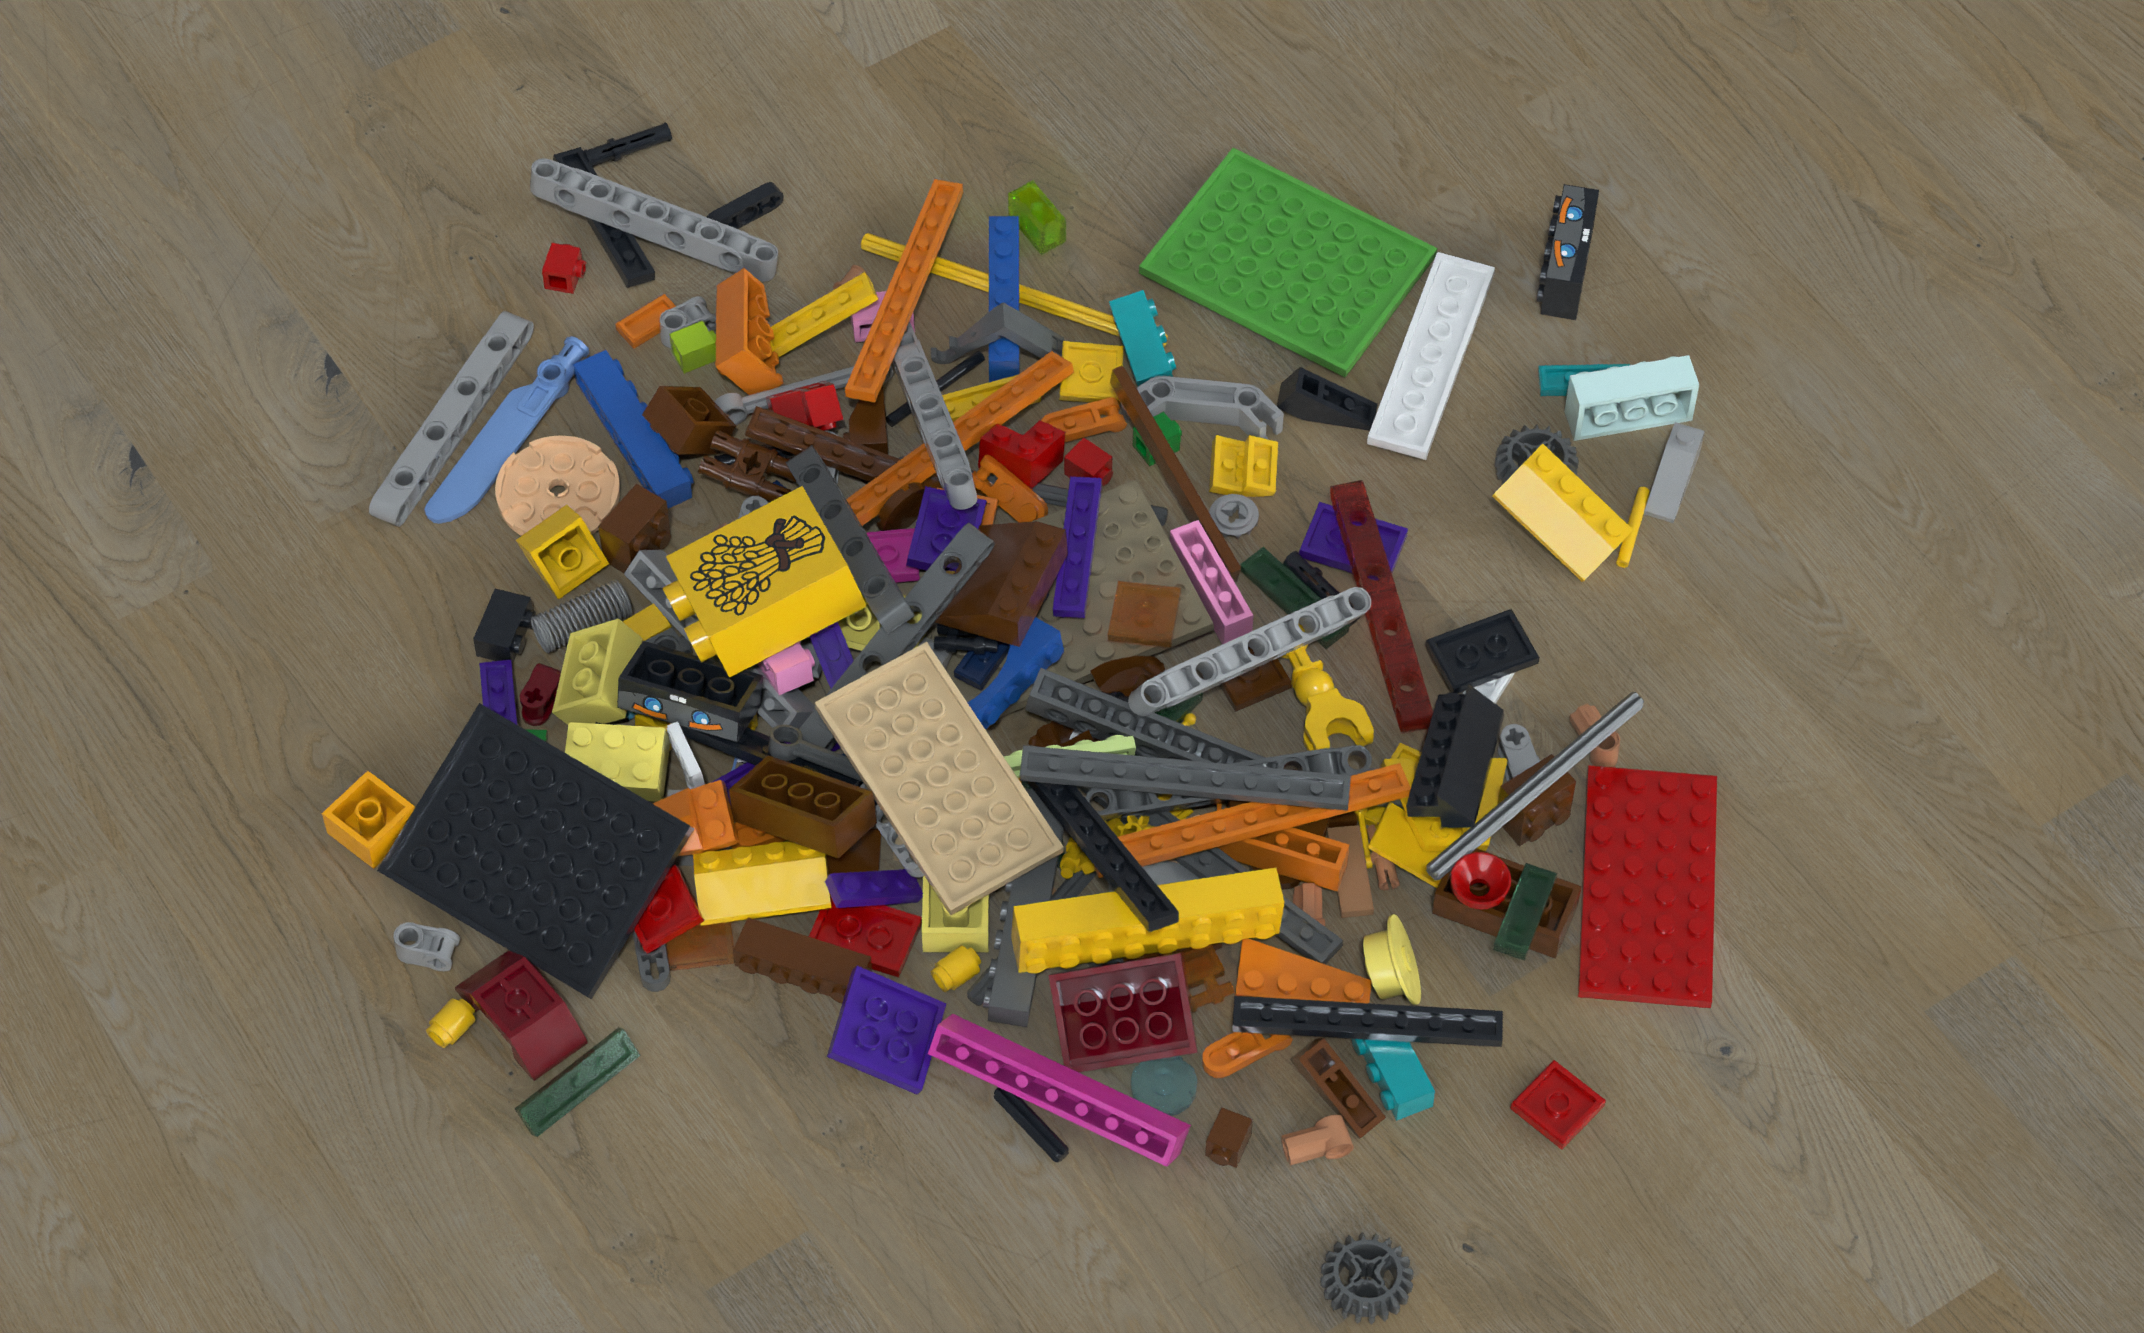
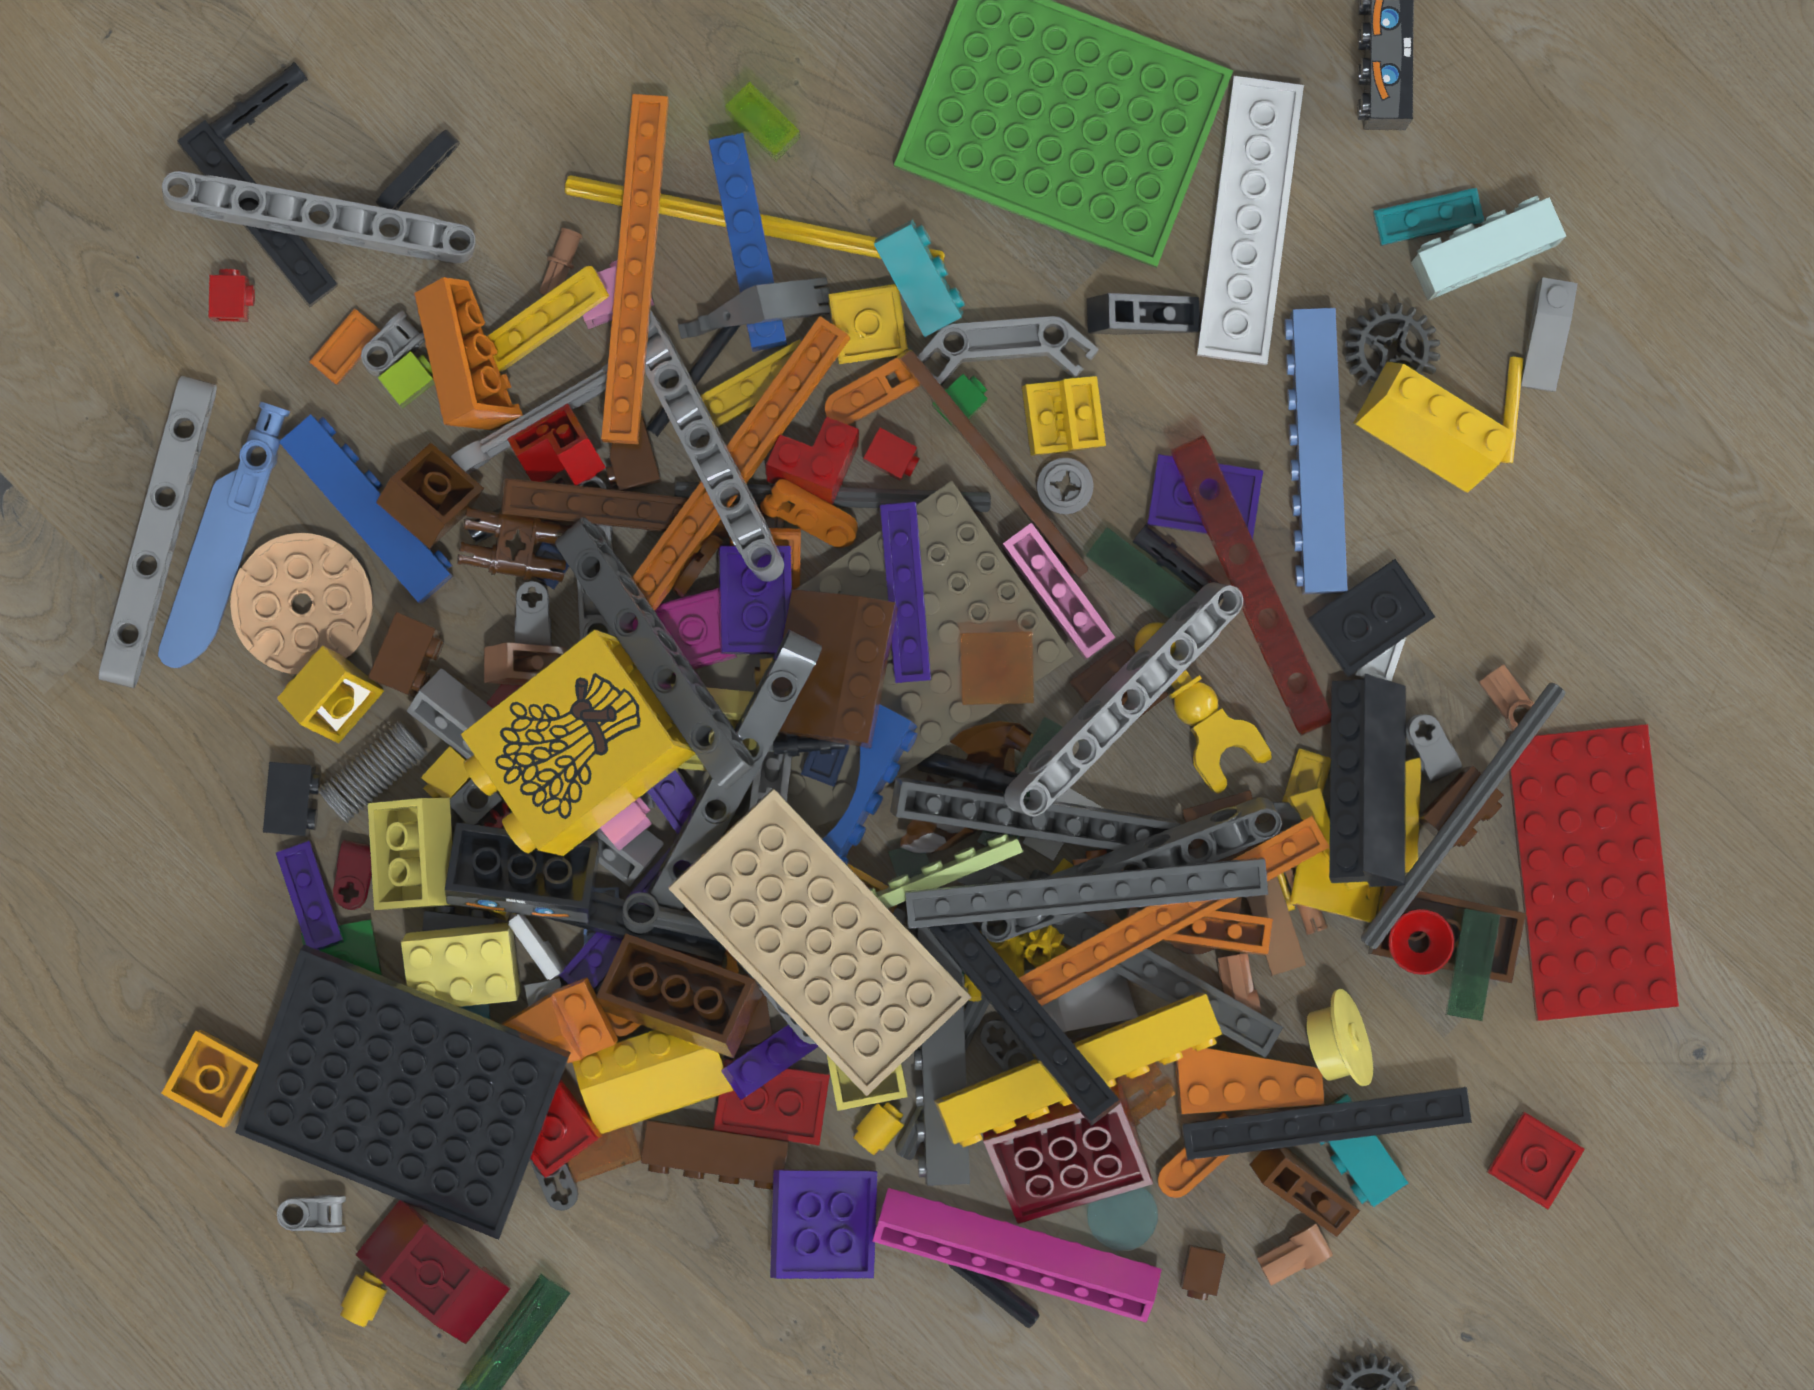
camera: 15 degrees left, 30 degrees up
(1458, 523) = (1317, 451): none -> medium blue brick

